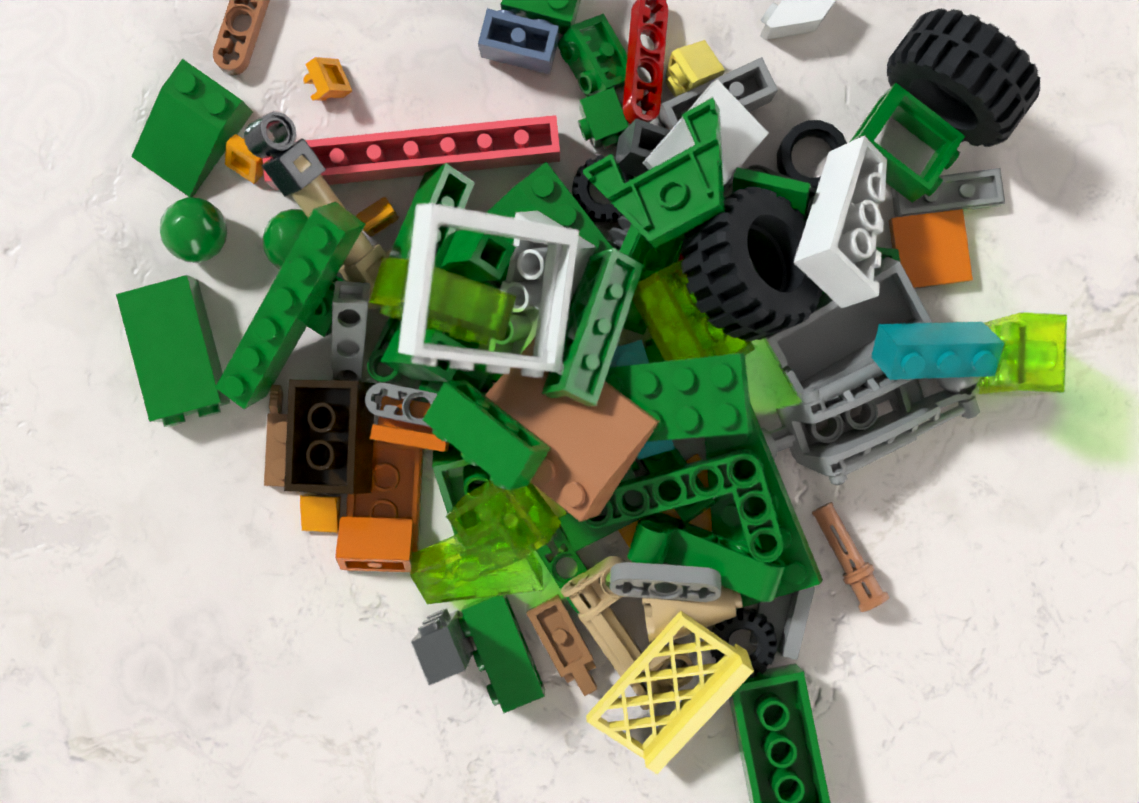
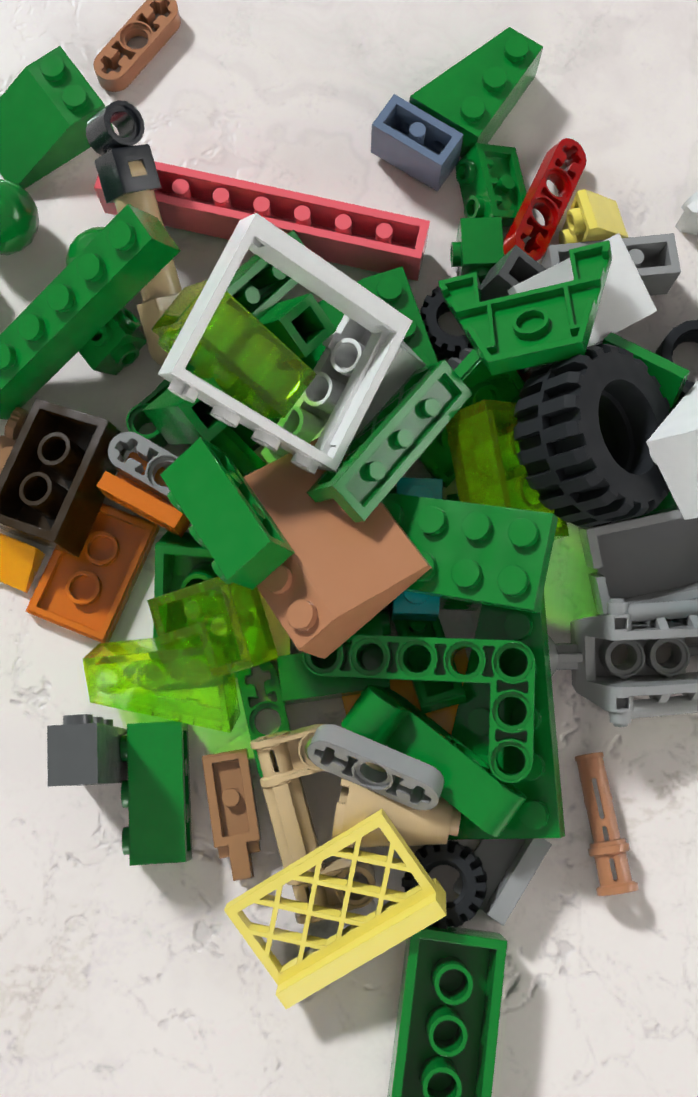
camera: 20 degrees right, 10 degrees down
(242, 160) = (81, 167): light orange tile -> none
(328, 79) = (202, 119): light orange tile -> none
(349, 329) = (122, 367): light grey leg -> none
(374, 544) = (58, 617): orange panel -> none
(377, 216) = (196, 271): light orange slope -> none

